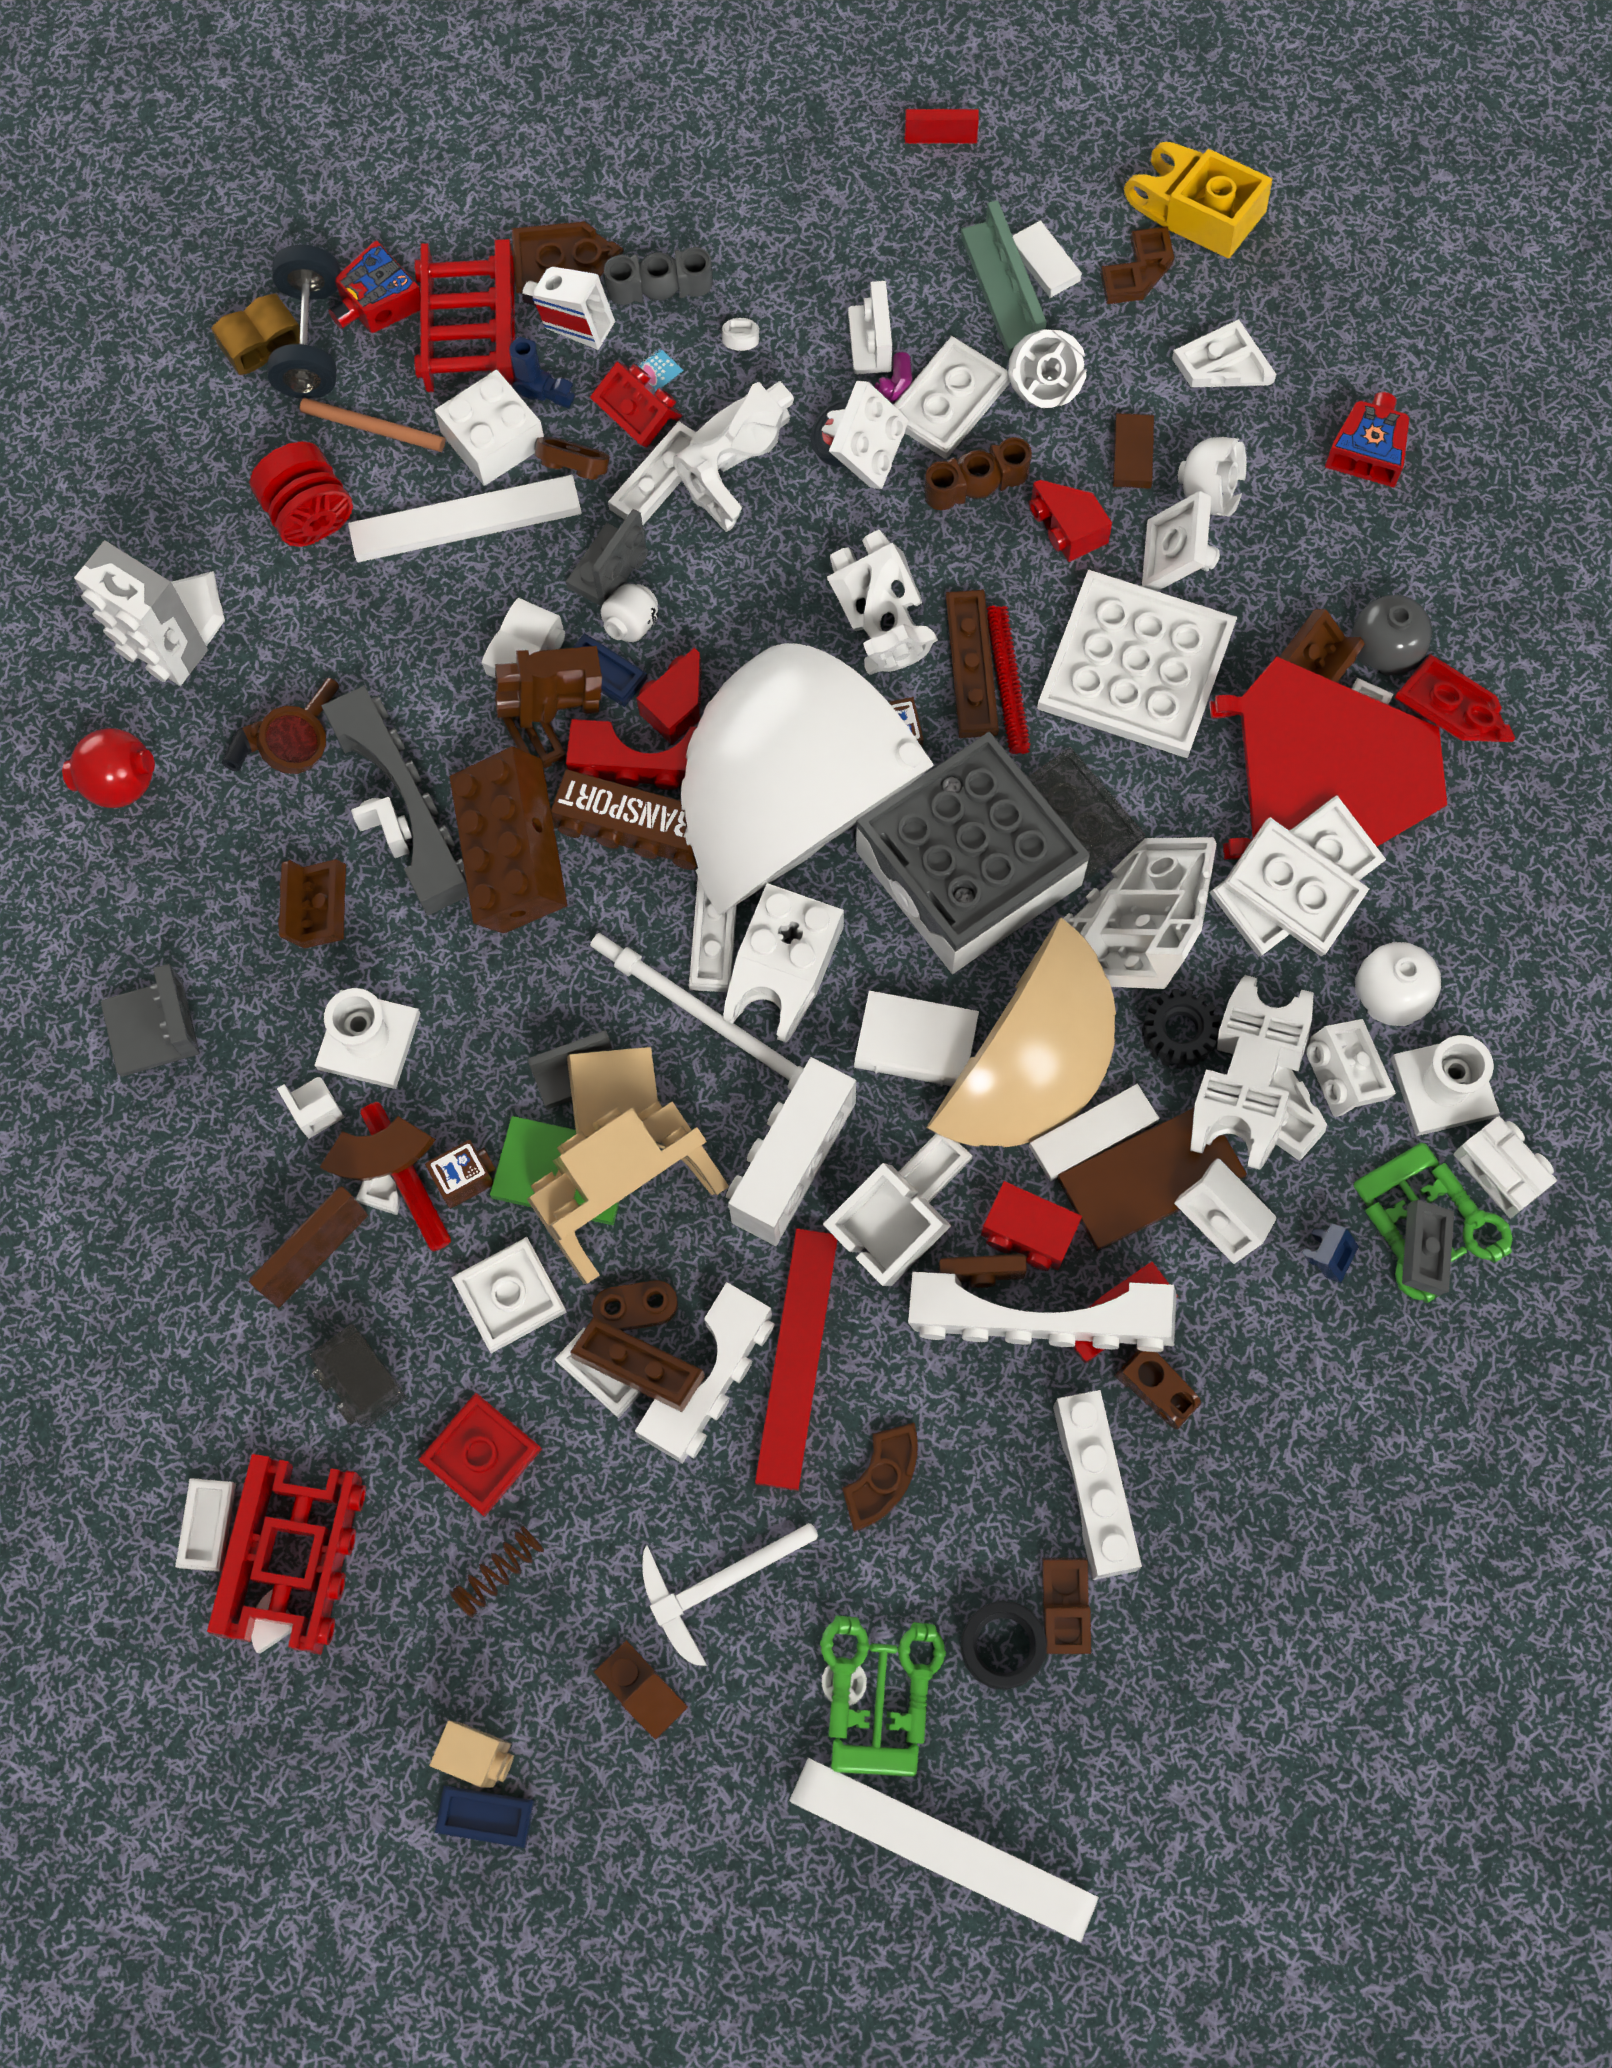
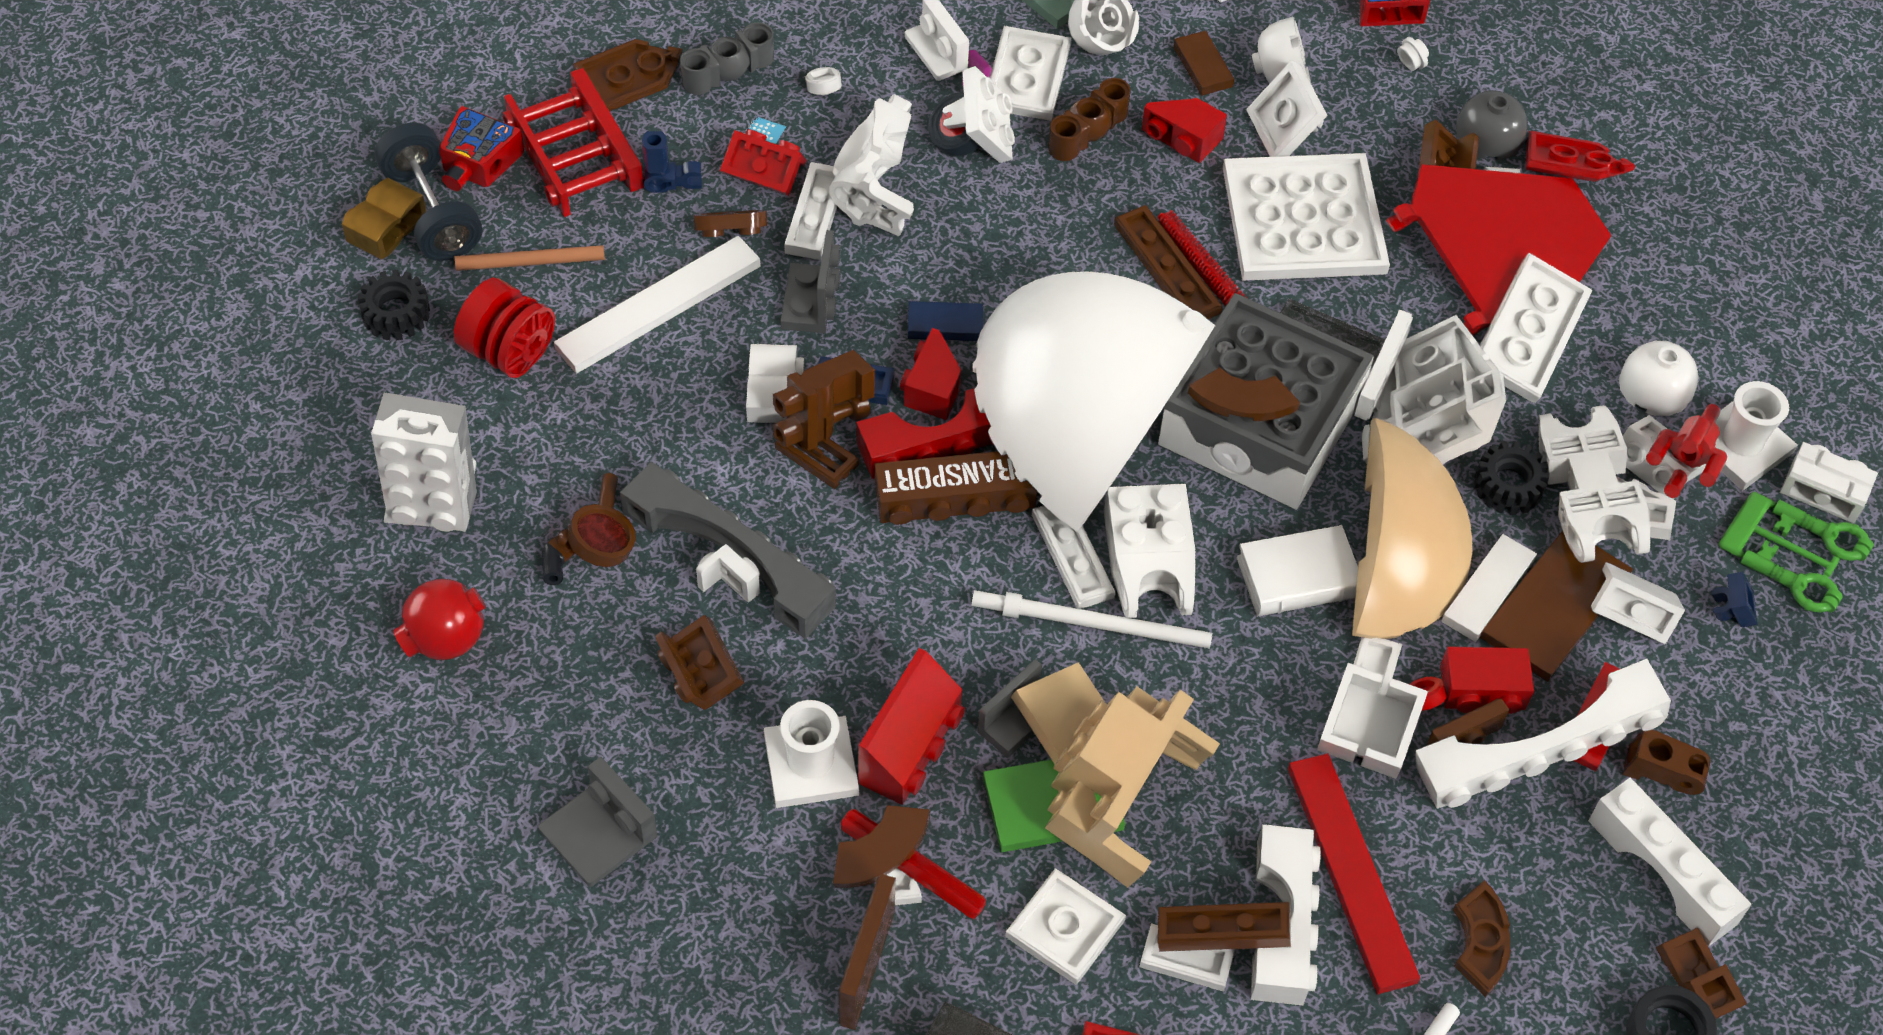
camera: 30 degrees left, 15 degrees down
(219, 411) = (397, 321): none -> black tyre
(312, 1106) = (793, 839): white panel -> none
(460, 1048) = (910, 729): none -> red slope
(461, 1173) = (966, 837): reddish brown brick -> none
(489, 427) = (645, 221): white brick -> none
(508, 840) = (856, 540): reddish brown brick -> none
(571, 305) = (665, 101): white torso -> none
(628, 612) = (854, 324): white head -> none
(635, 1311) = (1186, 884): reddish brown plate -> none
(721, 639) = (953, 320): none -> dark blue tile
(791, 1151) = (1255, 695): white brick -> none
(872, 580) = (1054, 225): white hips -> none
(928, 850) = (1251, 398): none -> reddish brown tile
(964, 1215) = (1436, 691): none -> red tile
(1115, 859) = (1383, 365): none -> white tile
(1295, 886) = (1538, 333): white tile -> none
(1356, 521) = (1413, 53): none -> white plate
(1372, 1076) = (1693, 447): none -> red plant
(1428, 1247) = (1813, 562): dark grey plate -> none

